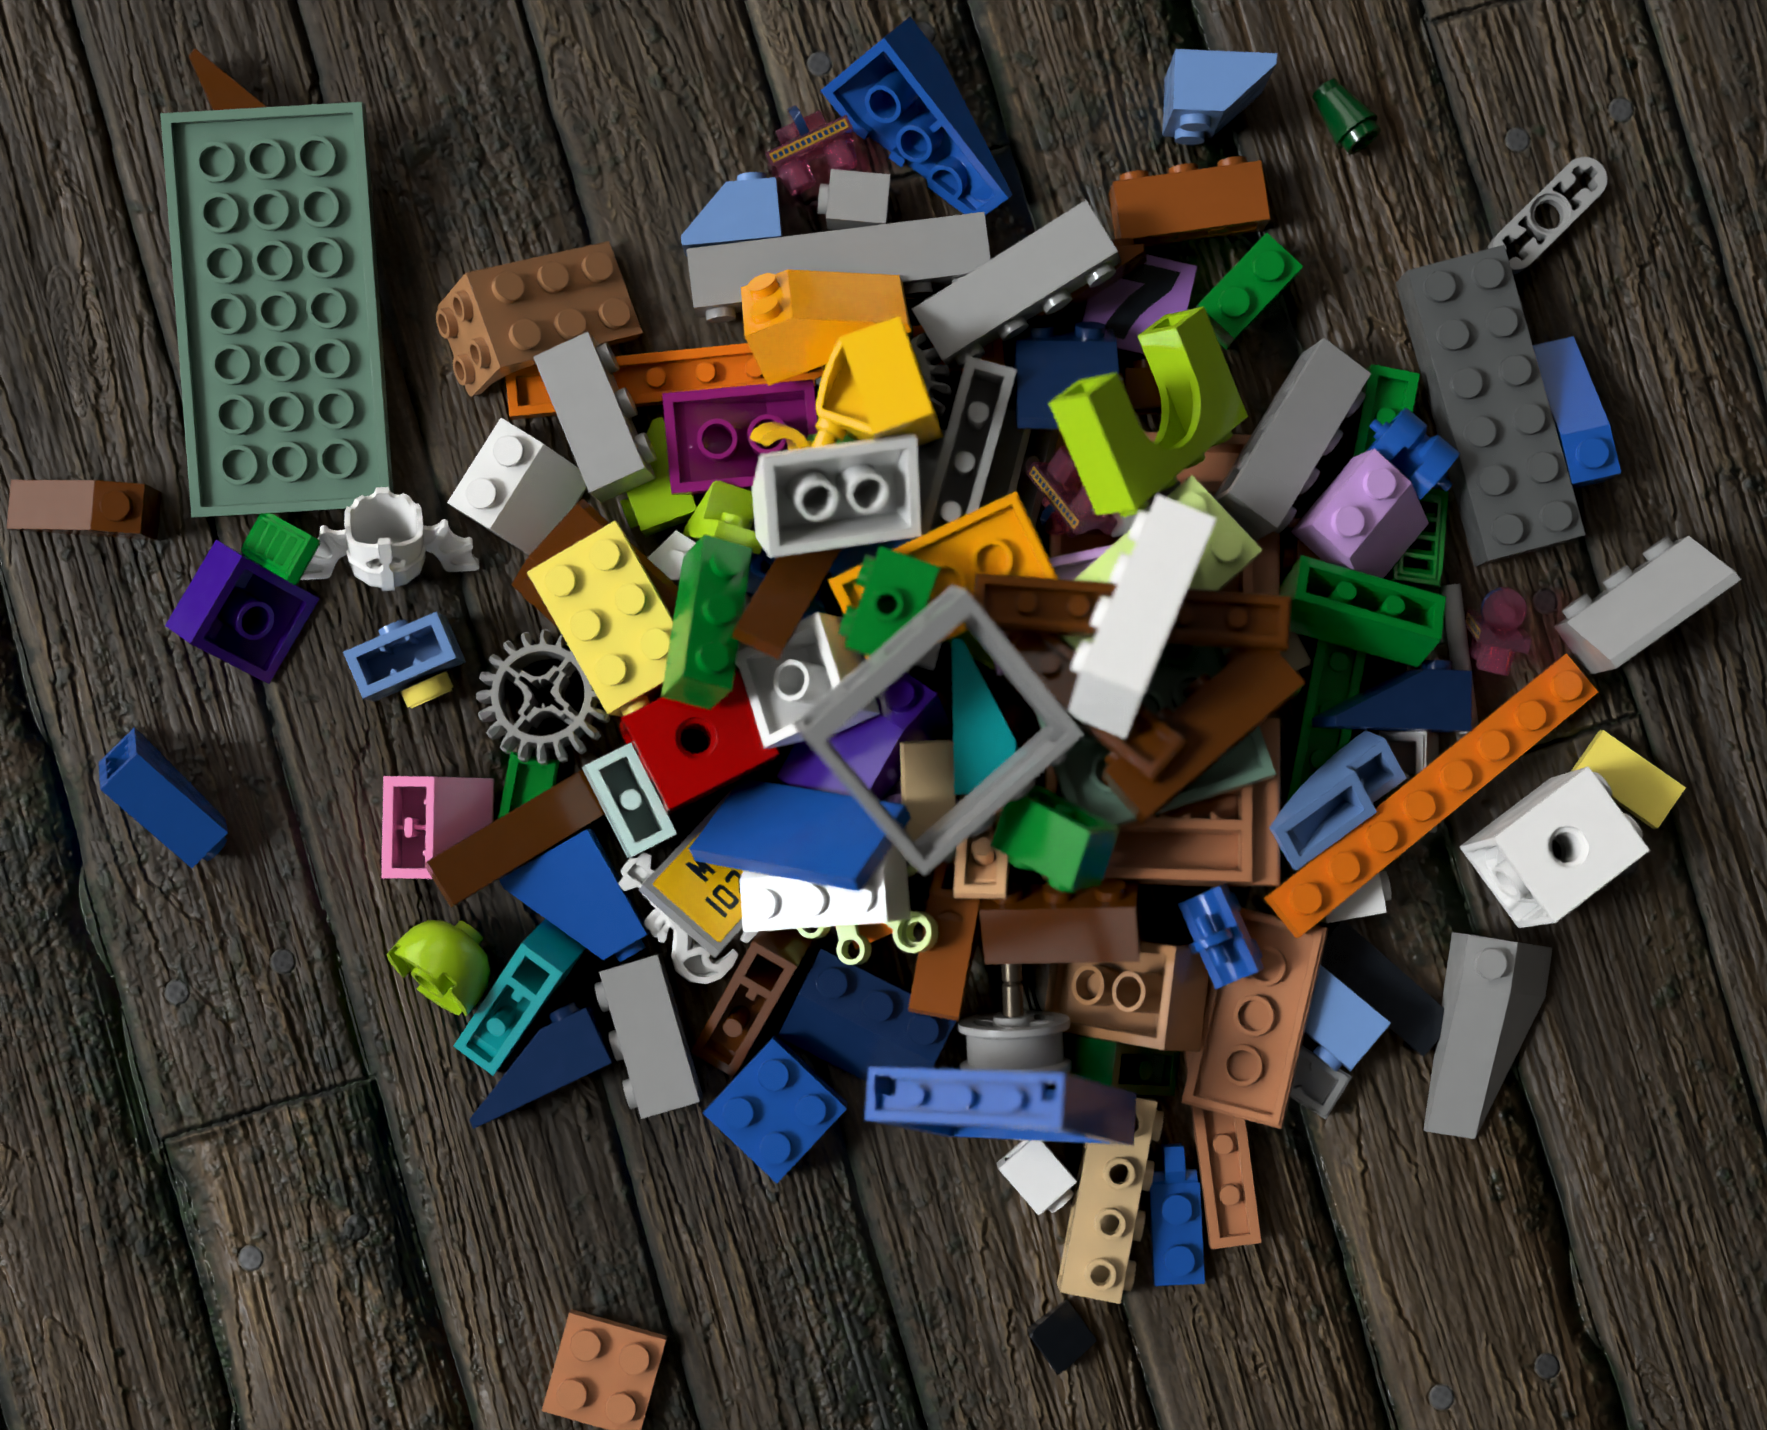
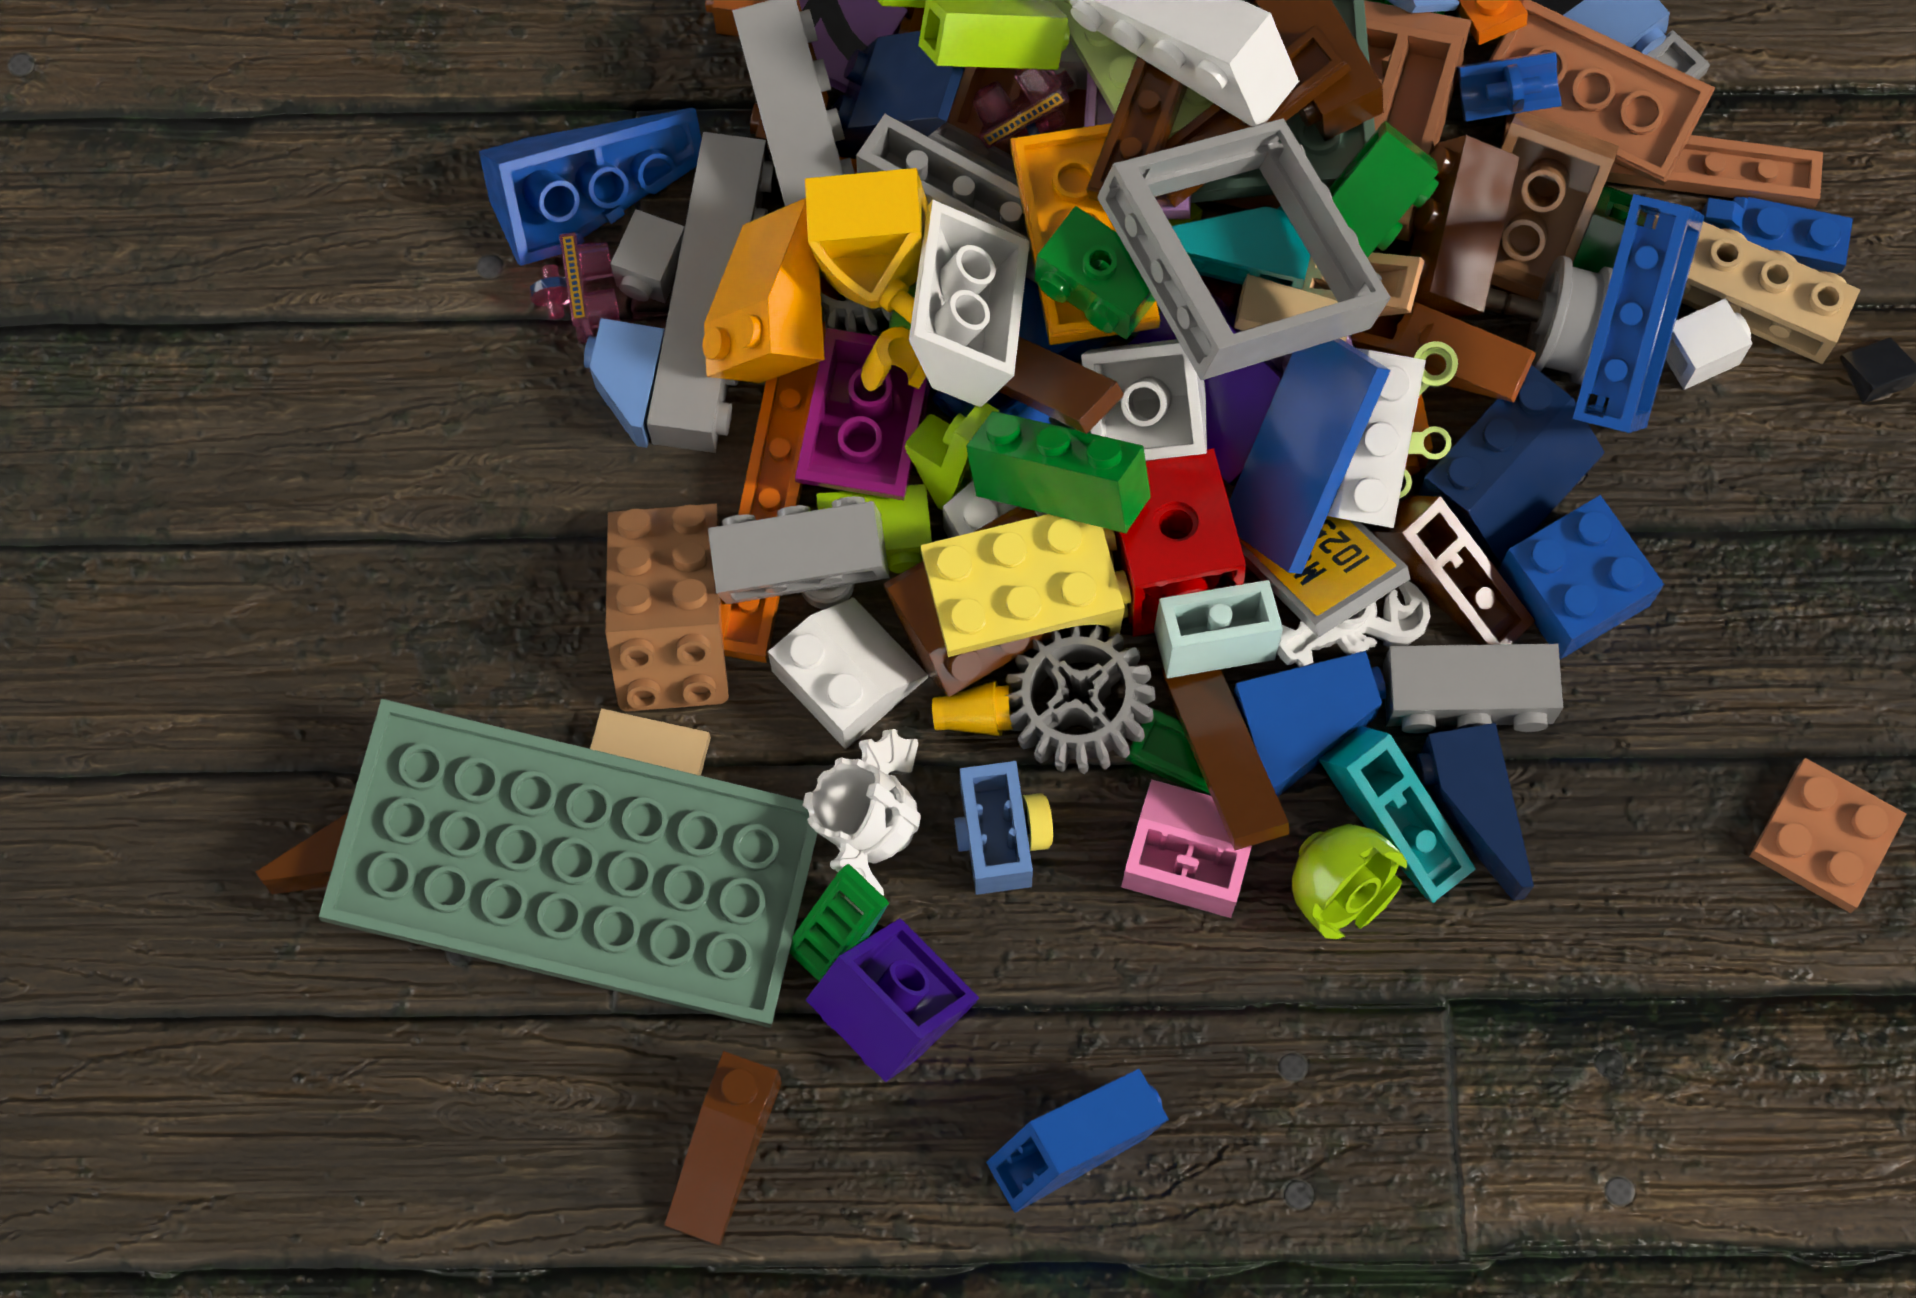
camera: 75 degrees left, 15 degrees down
(408, 342) = (651, 741): none -> tan tile
(512, 612) = (974, 710): none -> yellow cone

